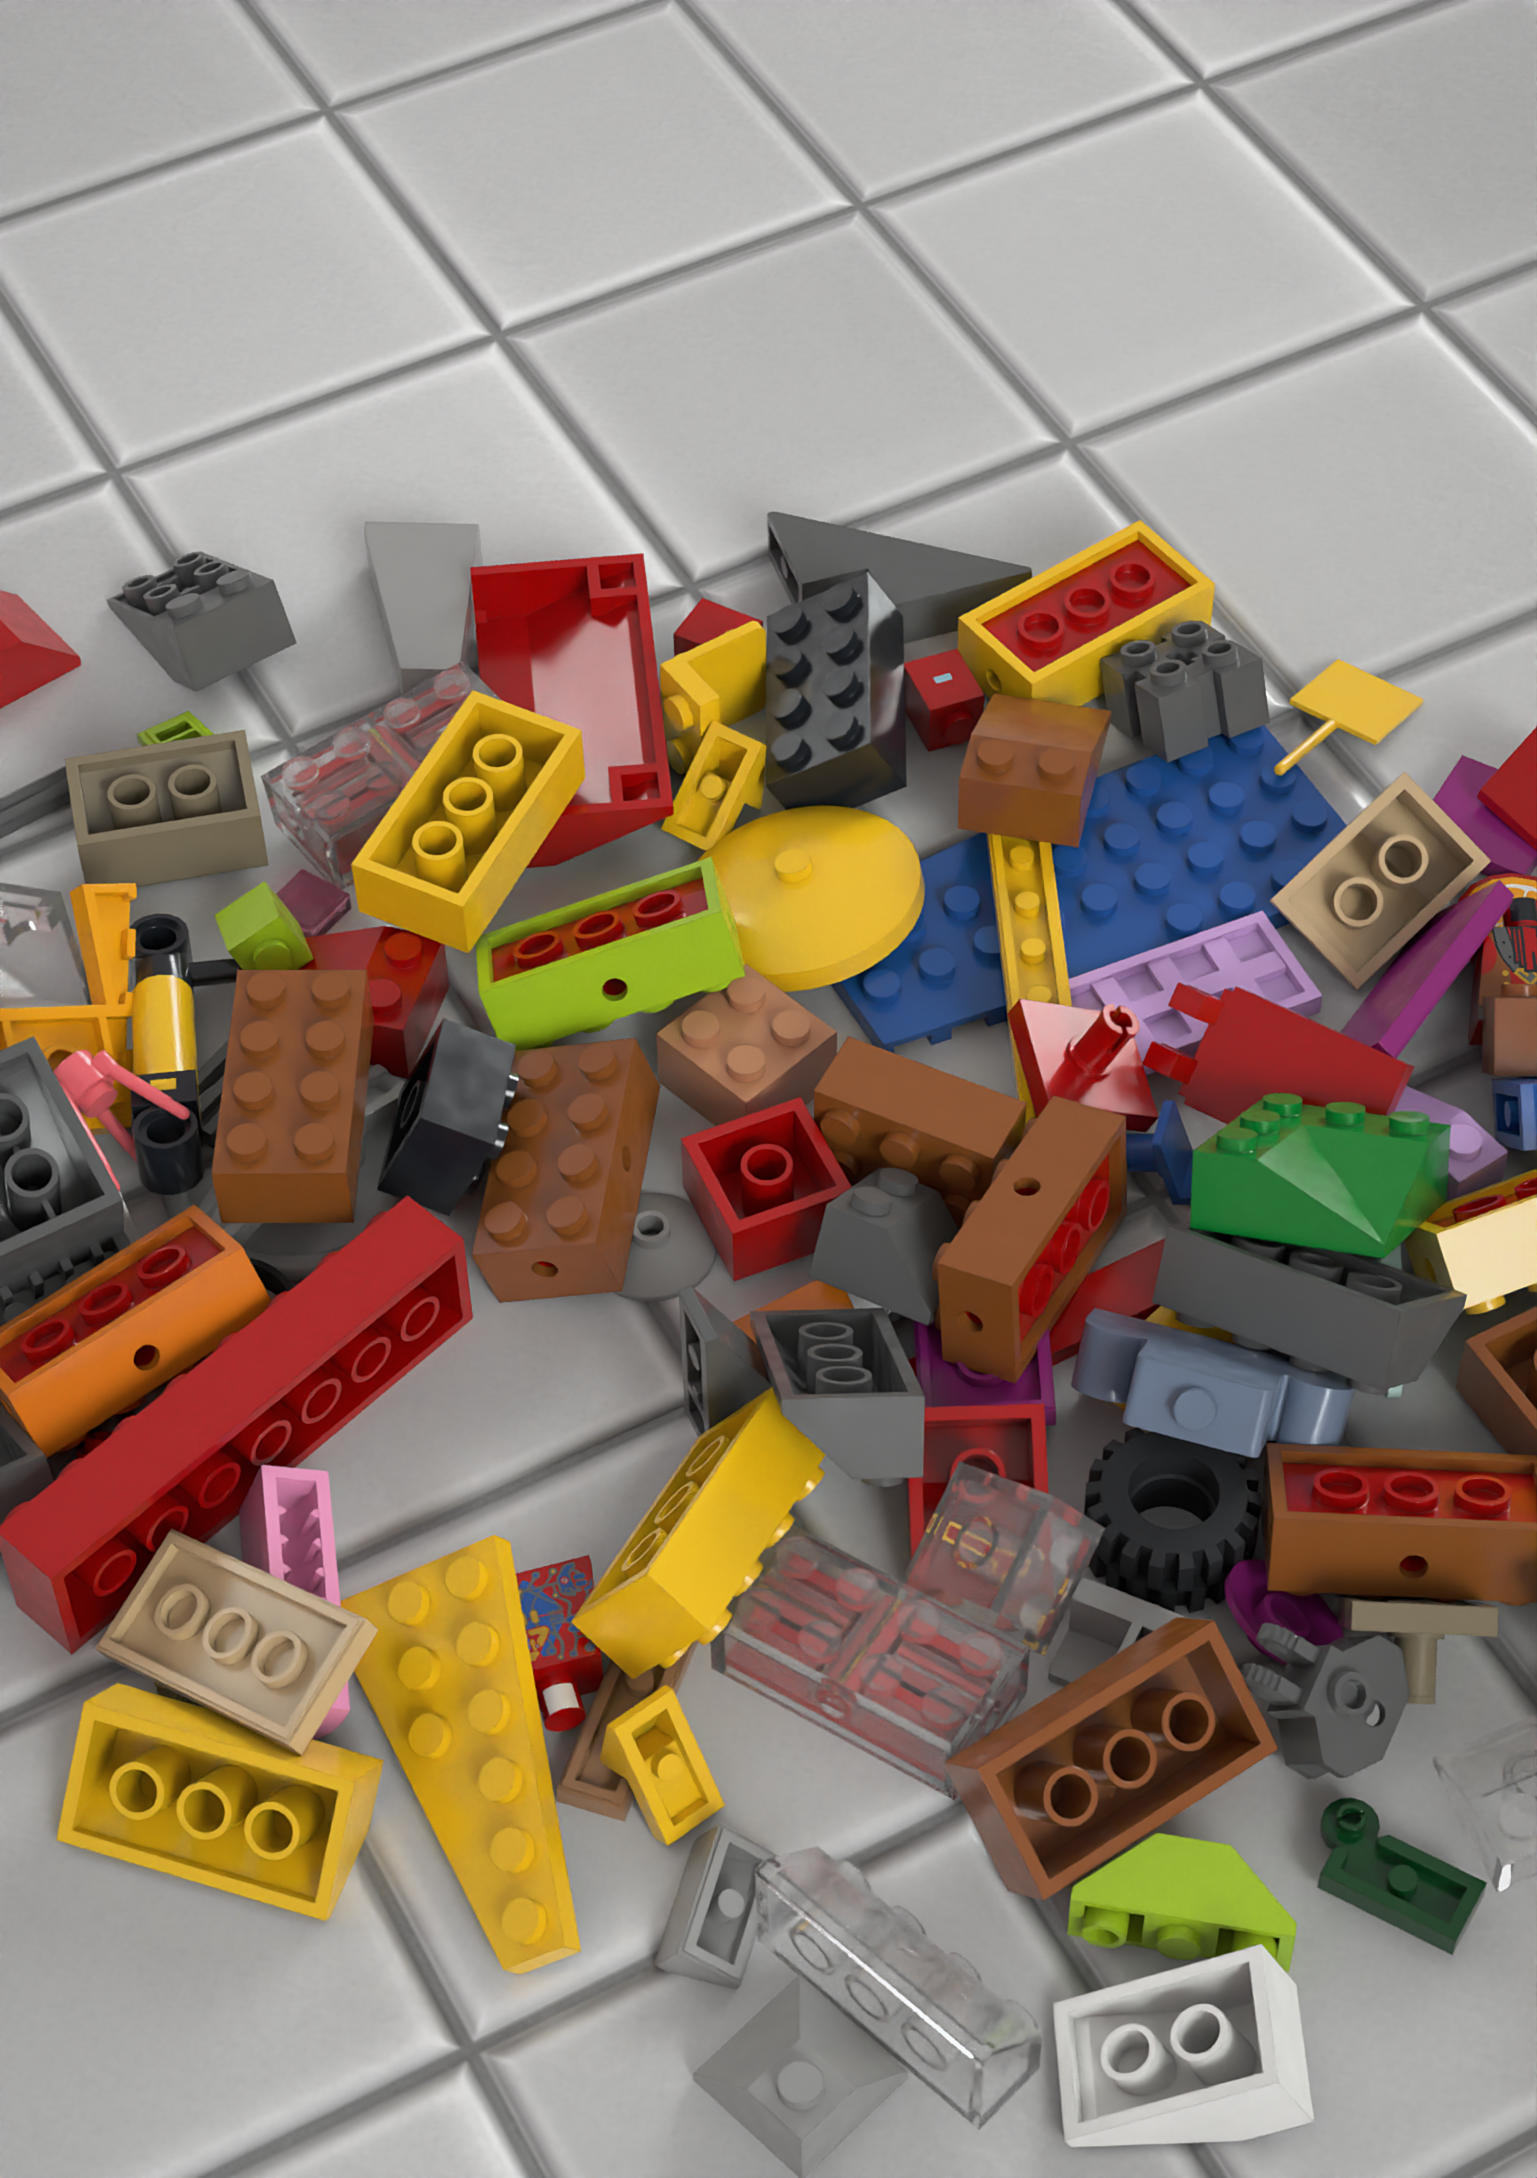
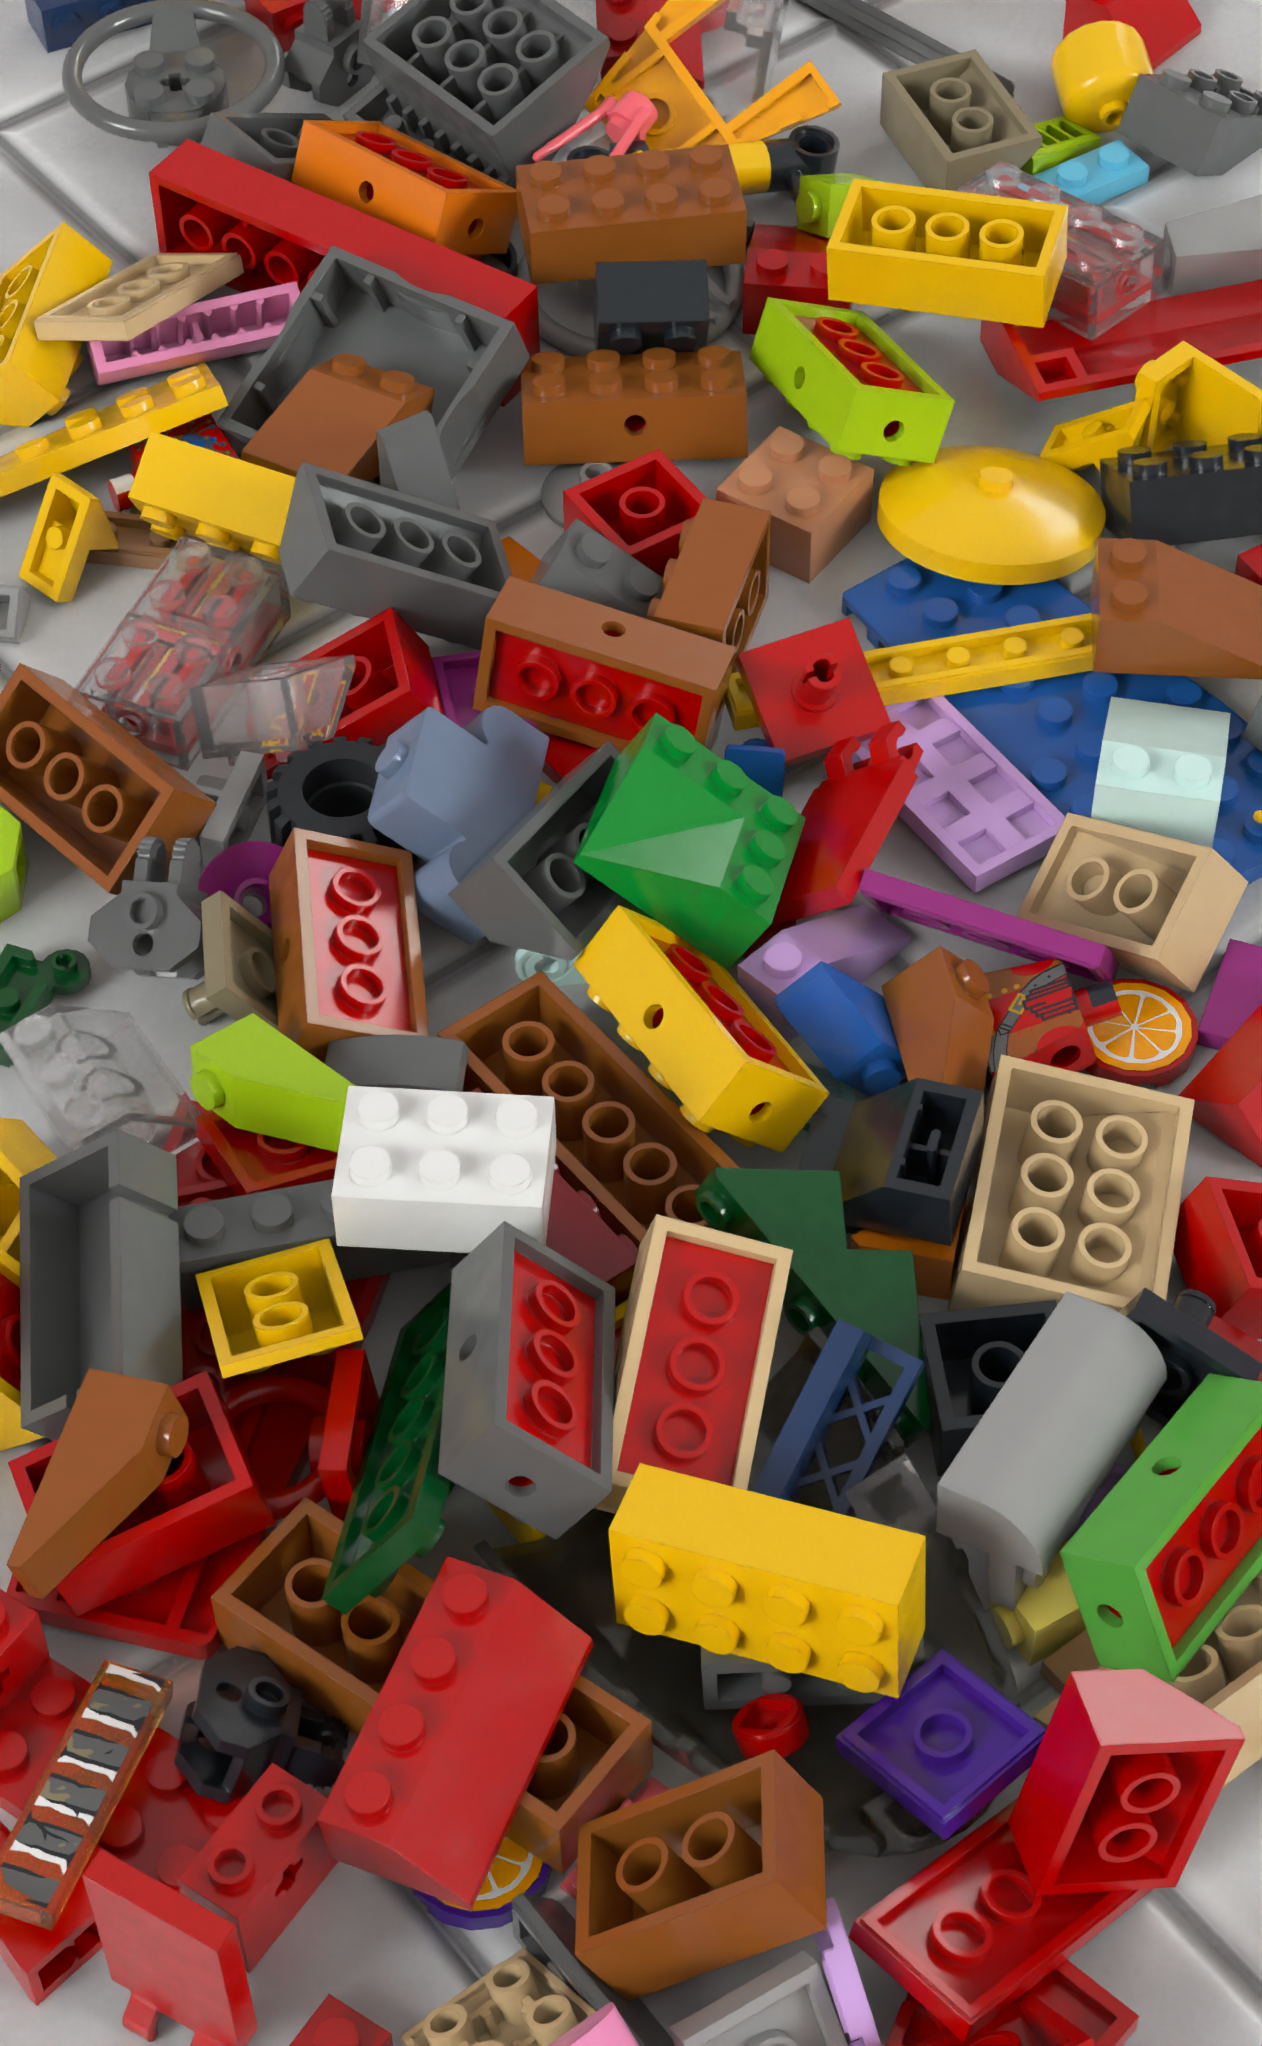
camera: 80 degrees right, 0 degrees up
(121, 677) = (1098, 72): none -> yellow head
(253, 710) = (1099, 173): none -> medium azure plate
(499, 1396) = (394, 326): none -> dark grey tile
(591, 1425) = (335, 418): none -> dark orange slope
(1217, 819) = (1162, 769): none -> light aqua slope

